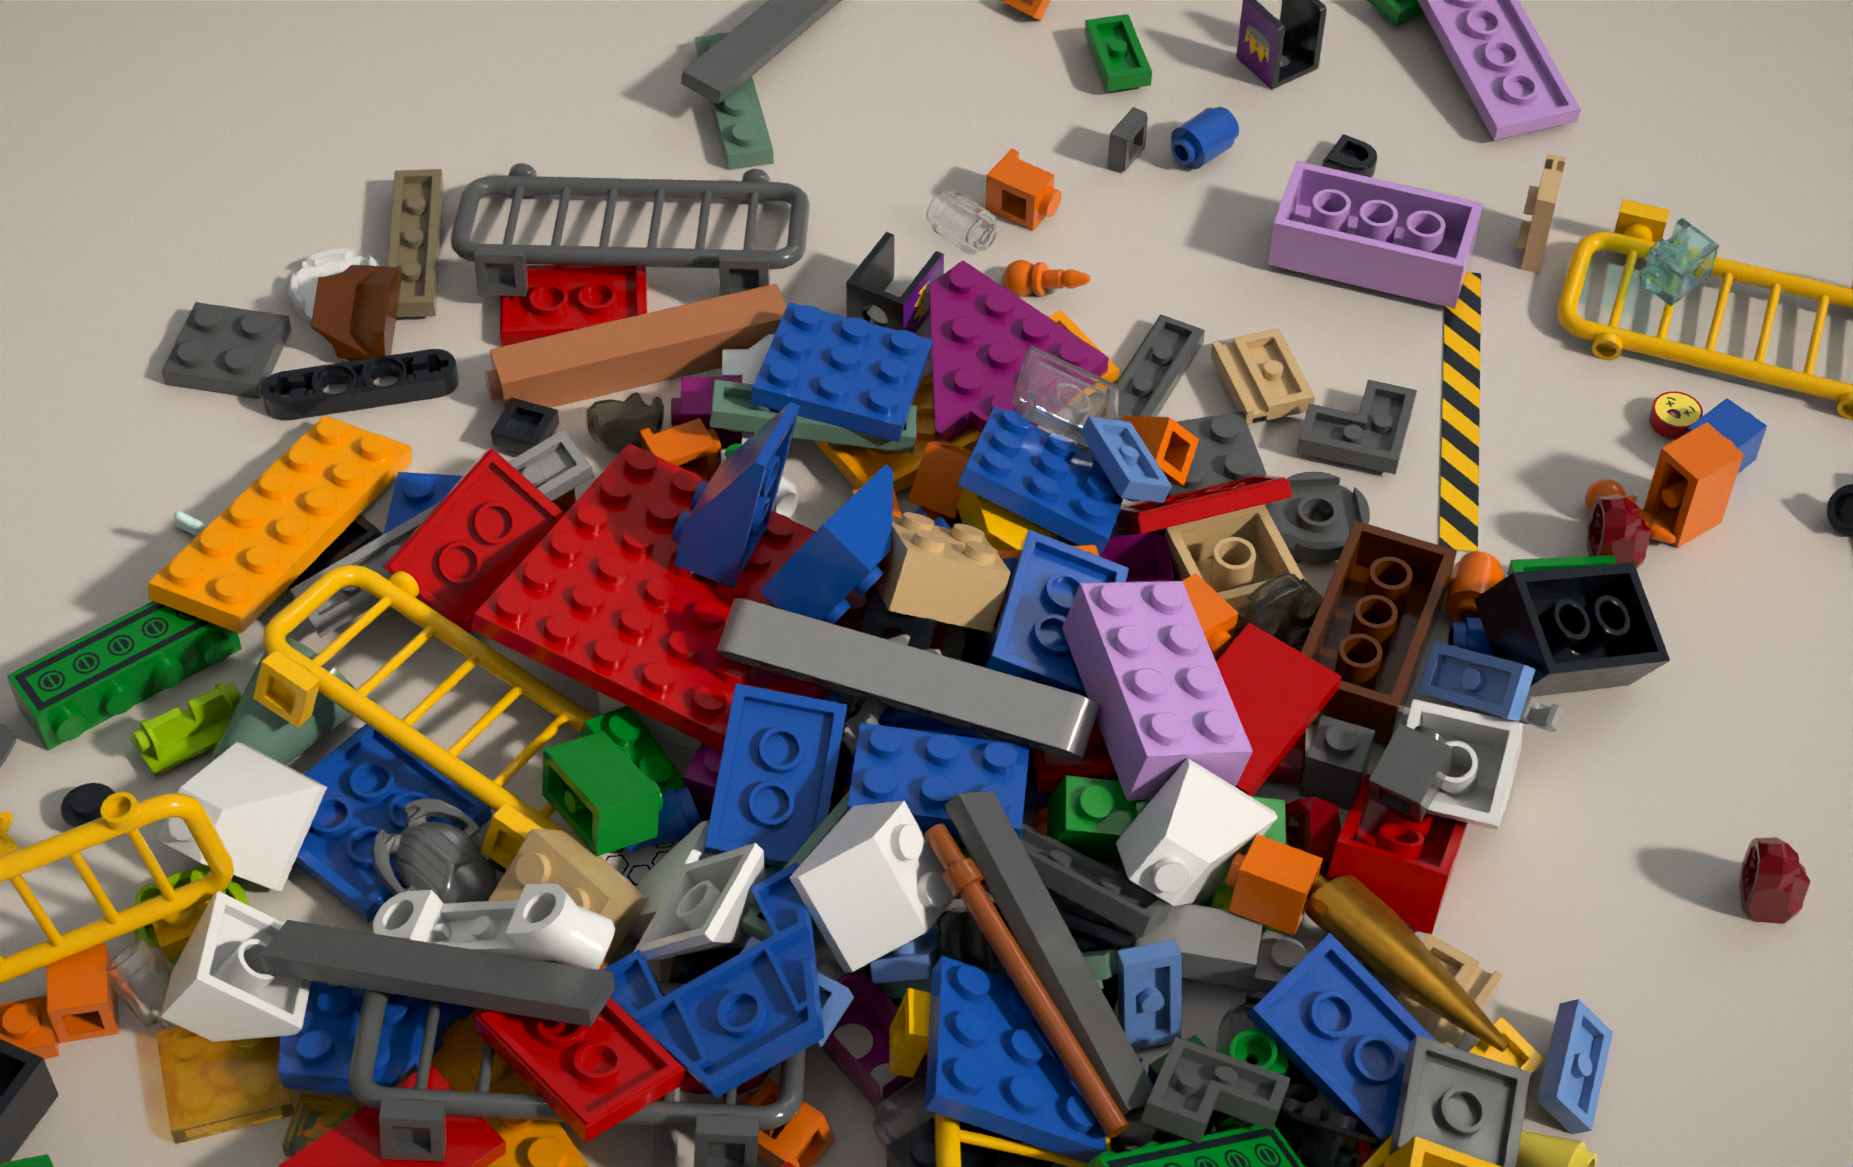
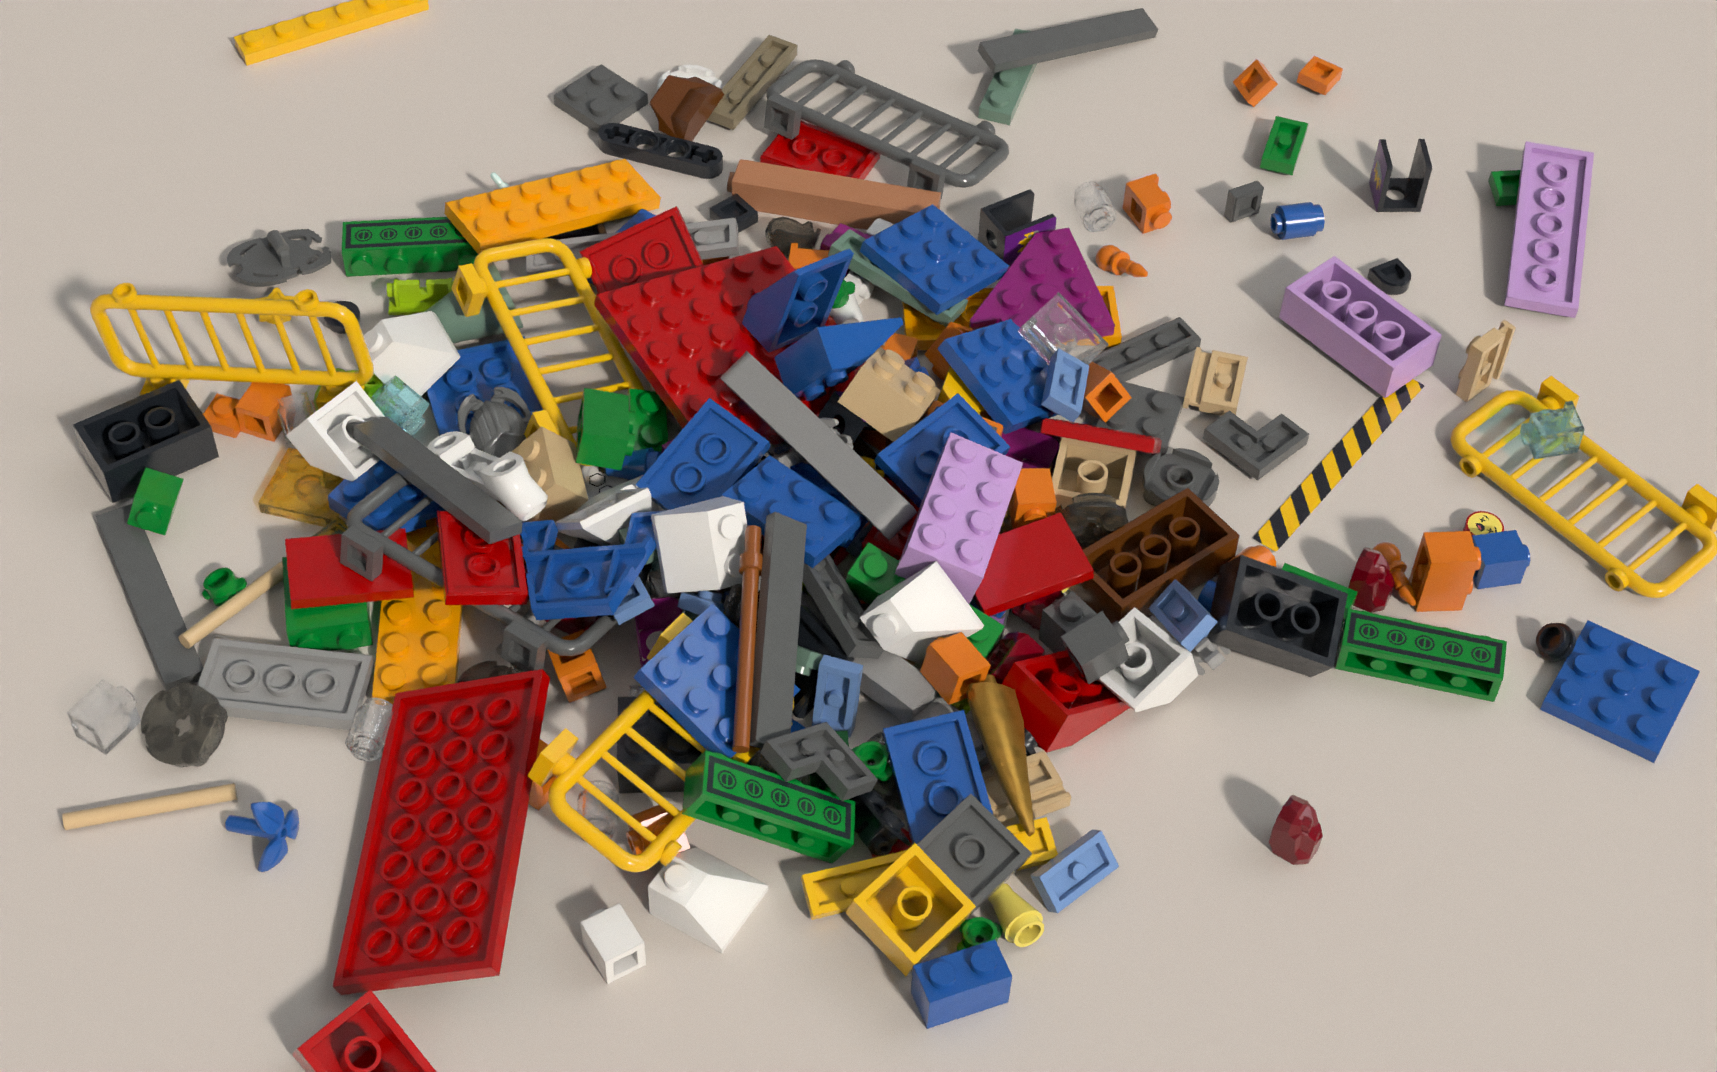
camera: 30 degrees right, 0 degrees up
(280, 891) = (401, 405): none -> clear light blue brick
(1745, 593) = (1421, 655): none -> green brick

